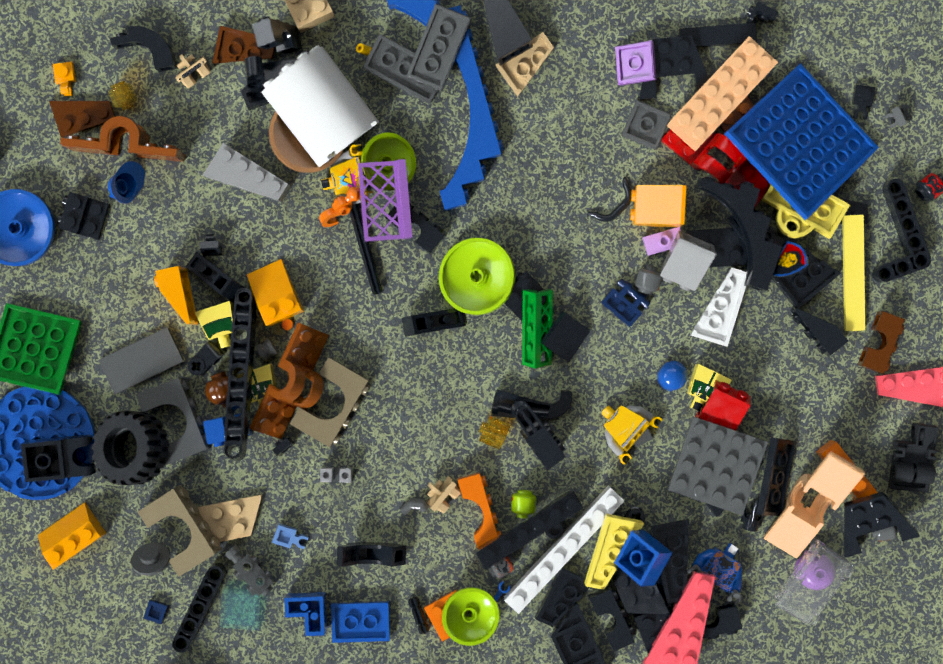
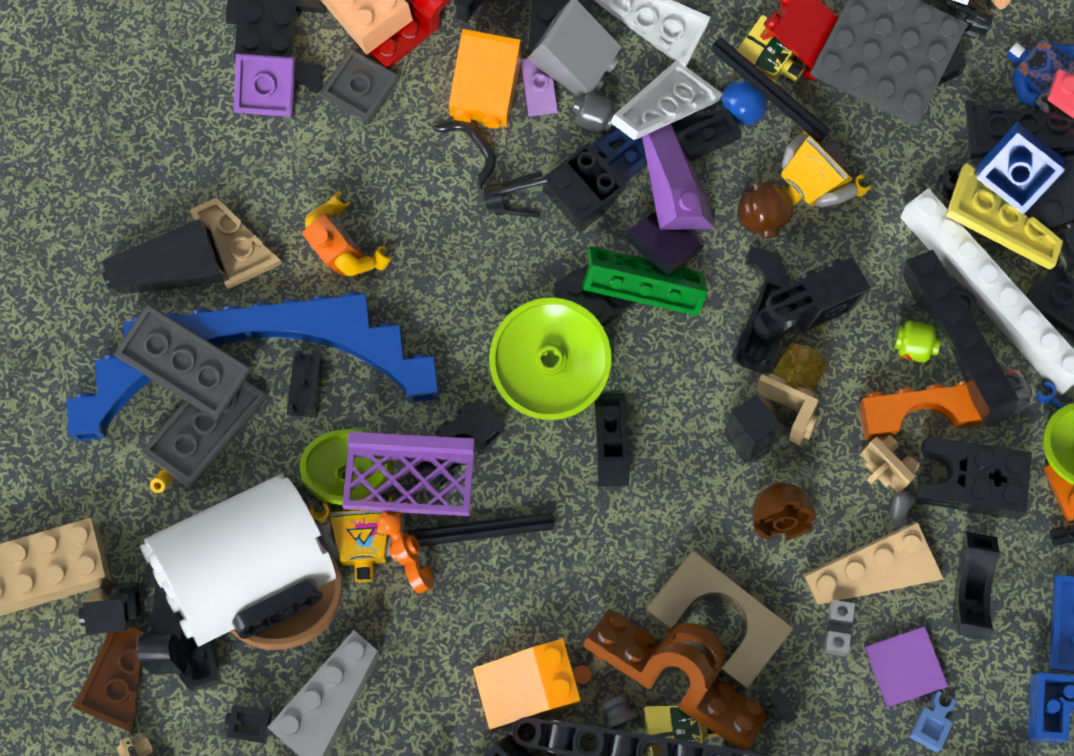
camera: 80 degrees left, 15 degrees down
(225, 131) = (248, 724): none -> black bracket
(290, 135) = (277, 608): none -> black beam
(320, 517) = (906, 667): none -> medium lavender tile
(377, 493) = (880, 566): none -> tan wing
(403, 432) = (783, 510): none -> reddish brown cylinder
(437, 544) = (968, 478): none -> black brick
(439, 126) = (305, 384): none -> black hinge
(451, 412) = (755, 428): none -> black wedge
(458, 439) = (797, 400): none -> tan bracket
(532, 128) = (335, 244): none -> torso
(583, 226) = (498, 194): none -> black plant
(595, 280) = (583, 187): none -> black slope
(598, 398) = (765, 209): none -> reddish brown plant
(605, 339) = (675, 185): none -> medium lavender wedge
(646, 351) = (706, 132): none -> black wing
(660, 324) = (665, 100): none -> white wing
(678, 391) = (770, 89): none -> black axle

